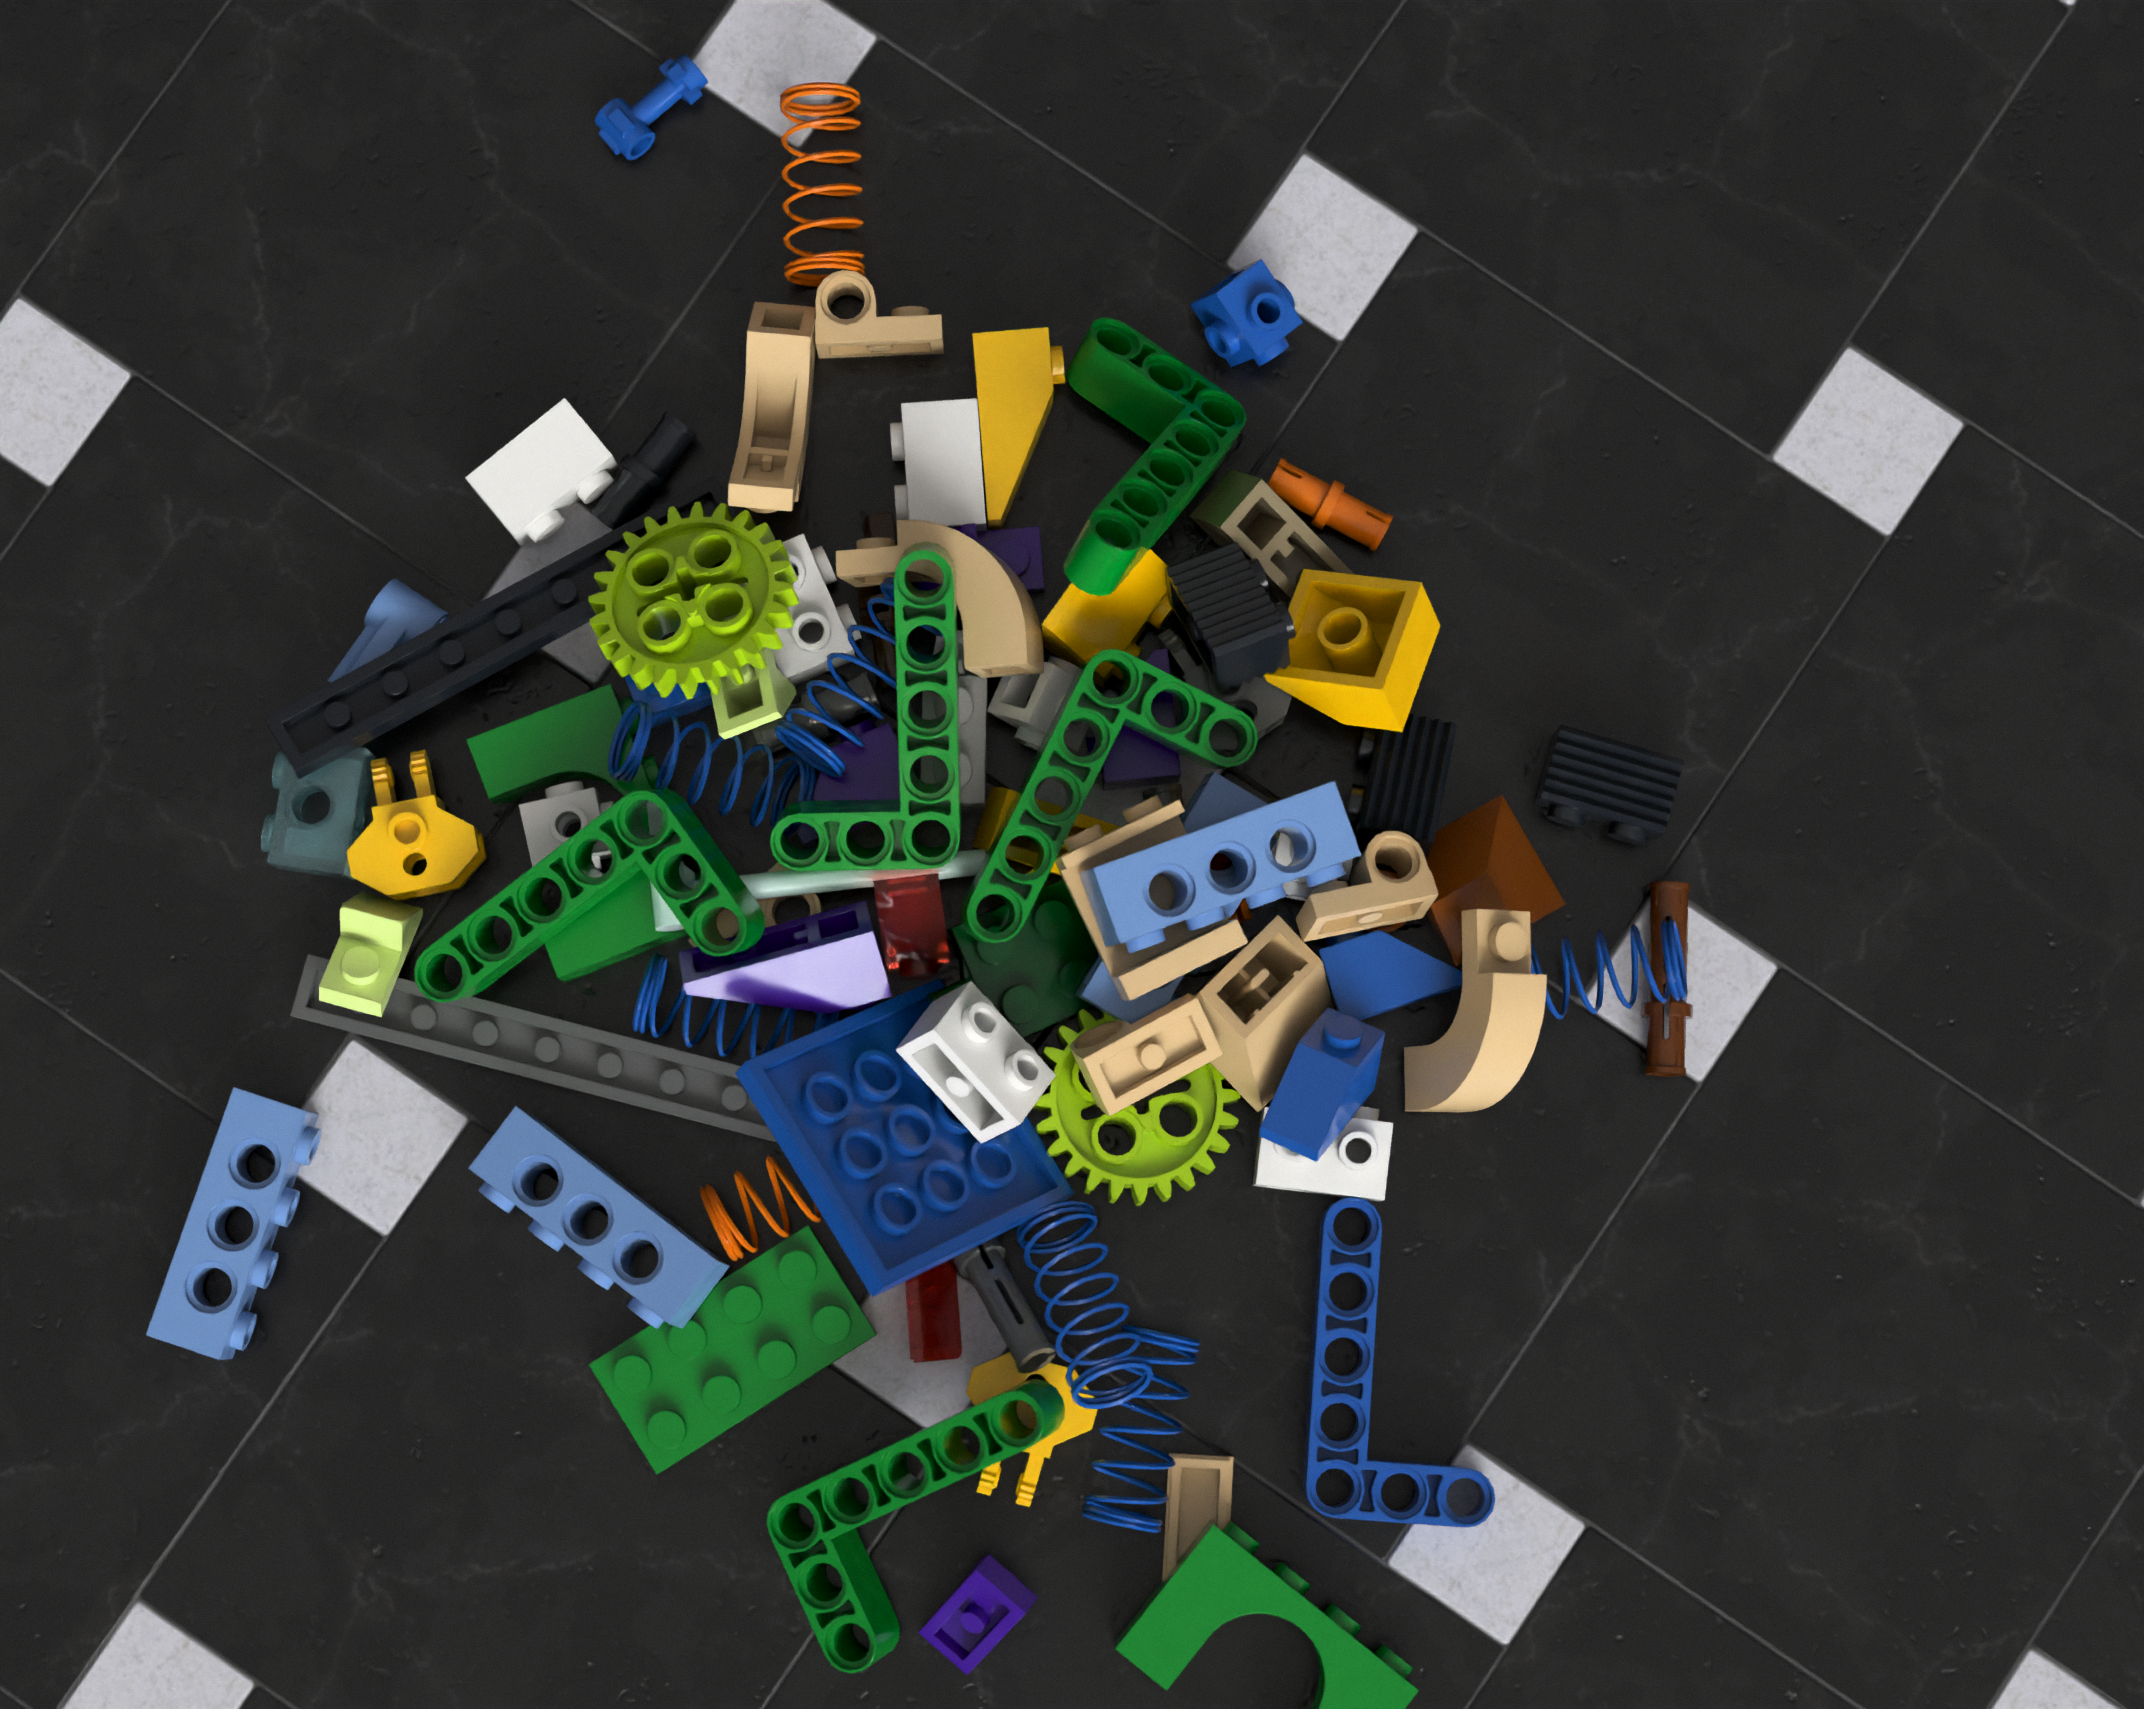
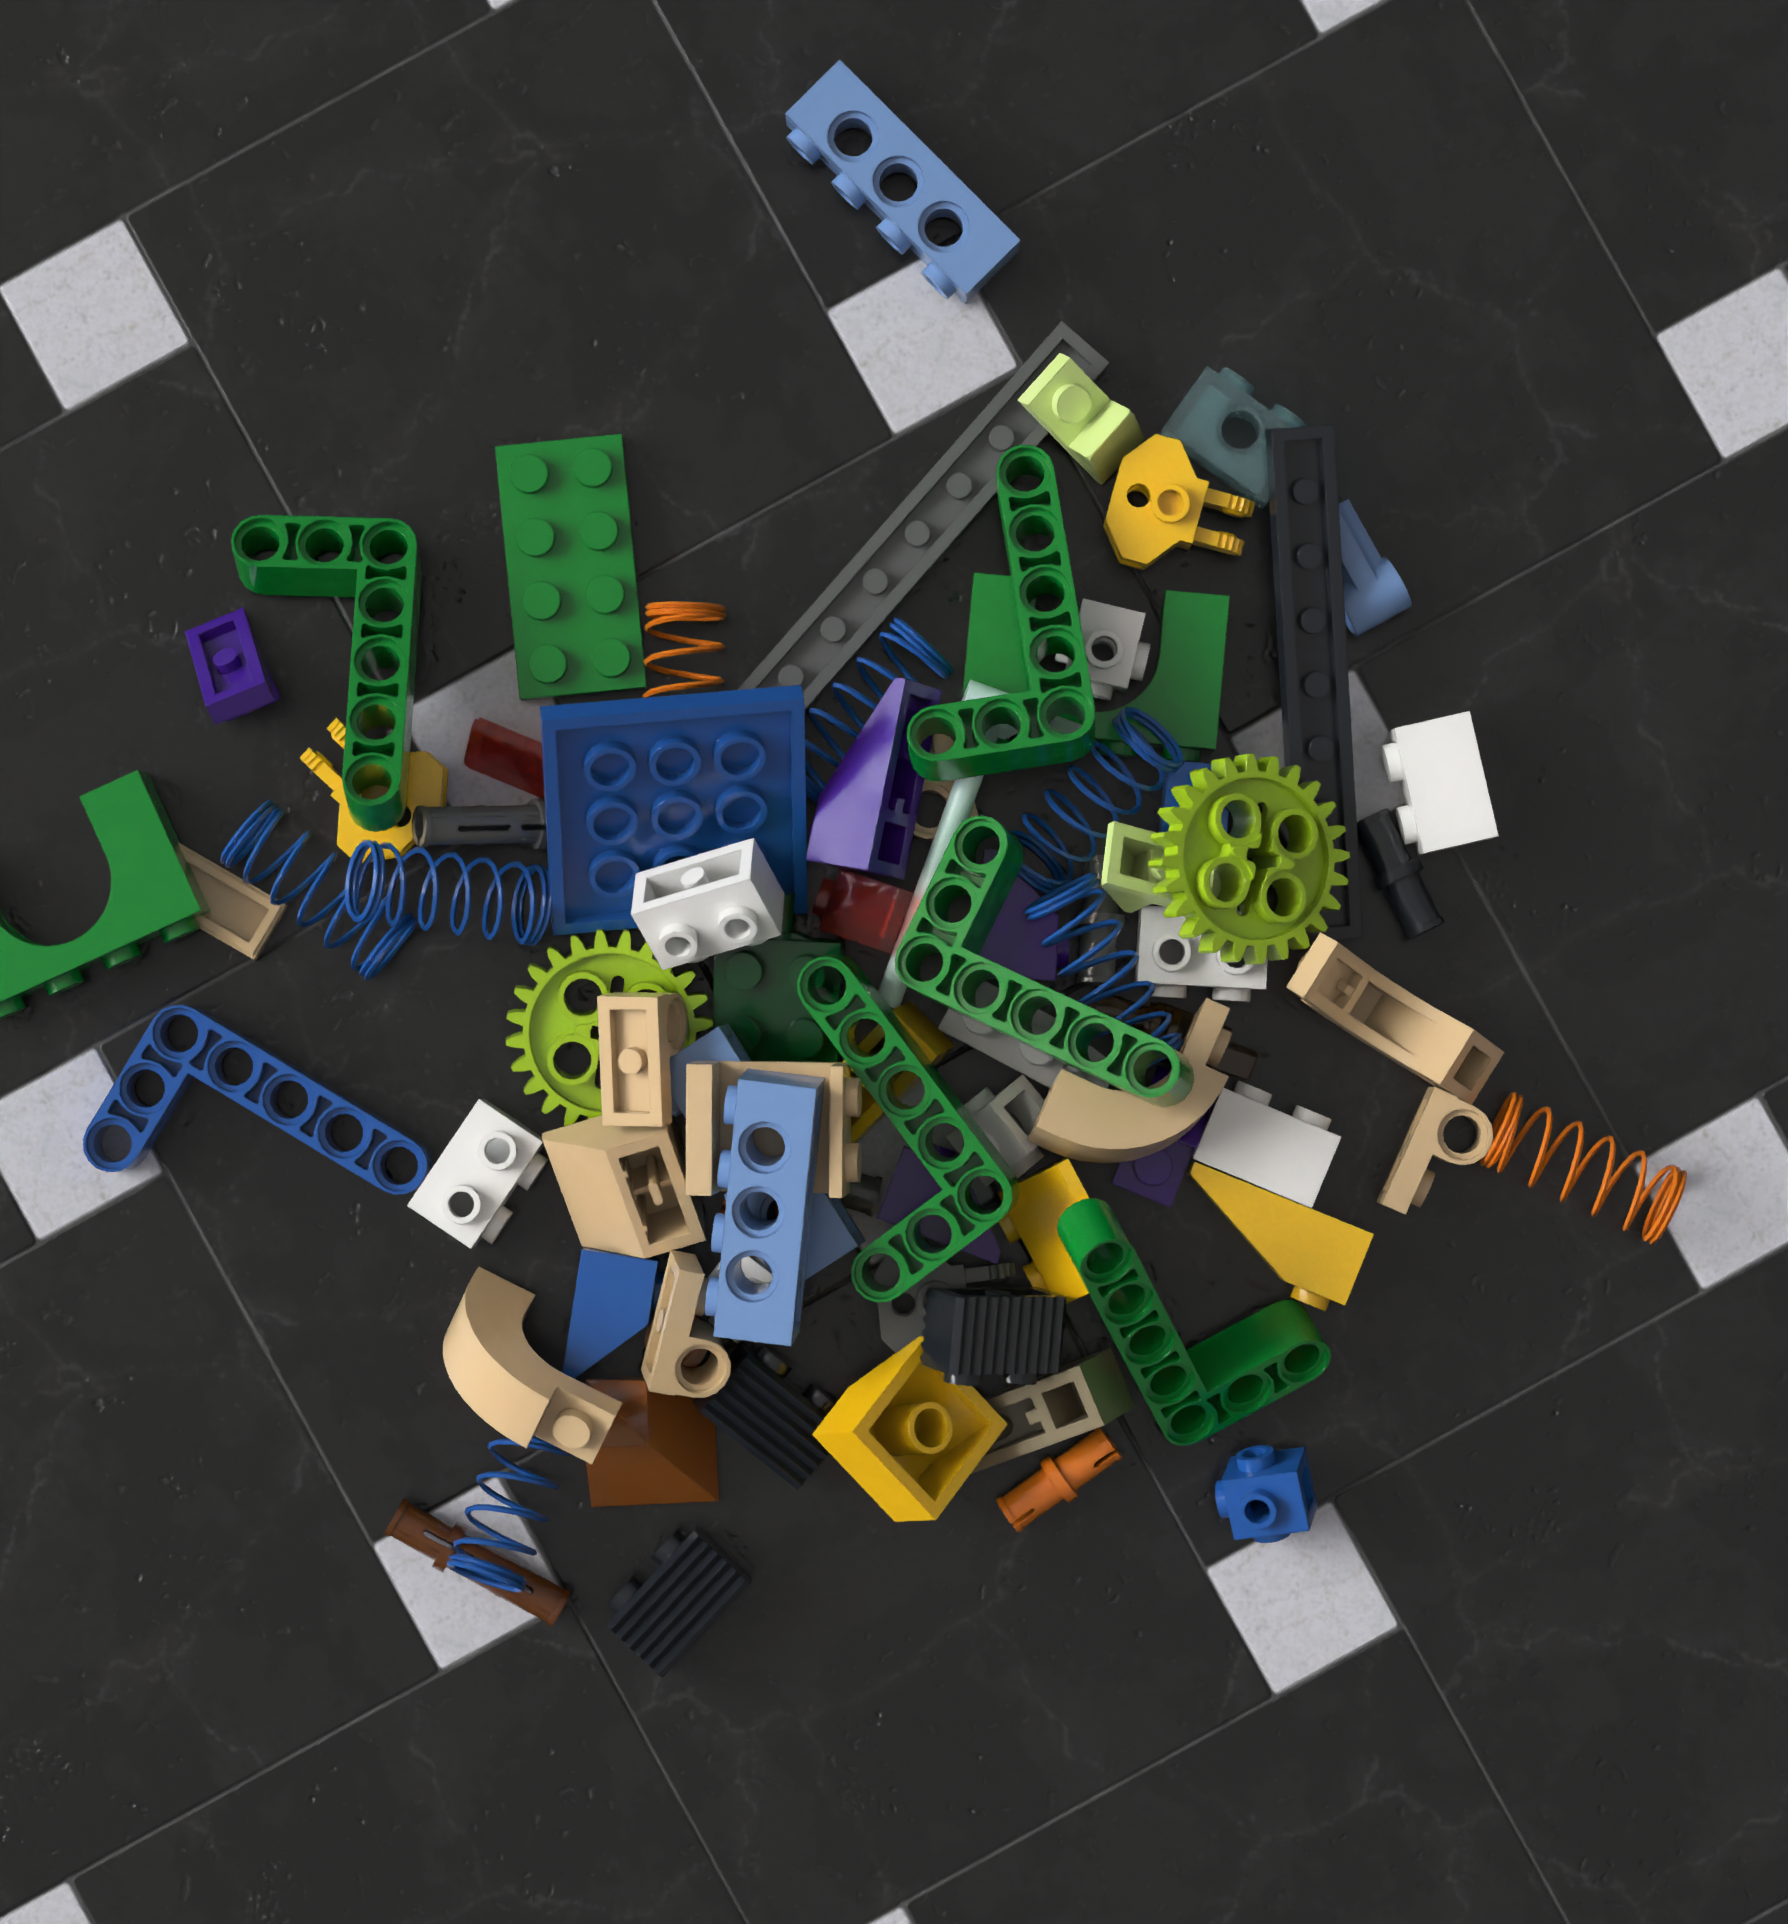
camera: 125 degrees right, 5 degrees up
(627, 128) = (1728, 1017): blue bar -> none
(684, 1267) = (662, 561): medium blue brick -> none
(1324, 1084) = (533, 1203): blue slope -> none

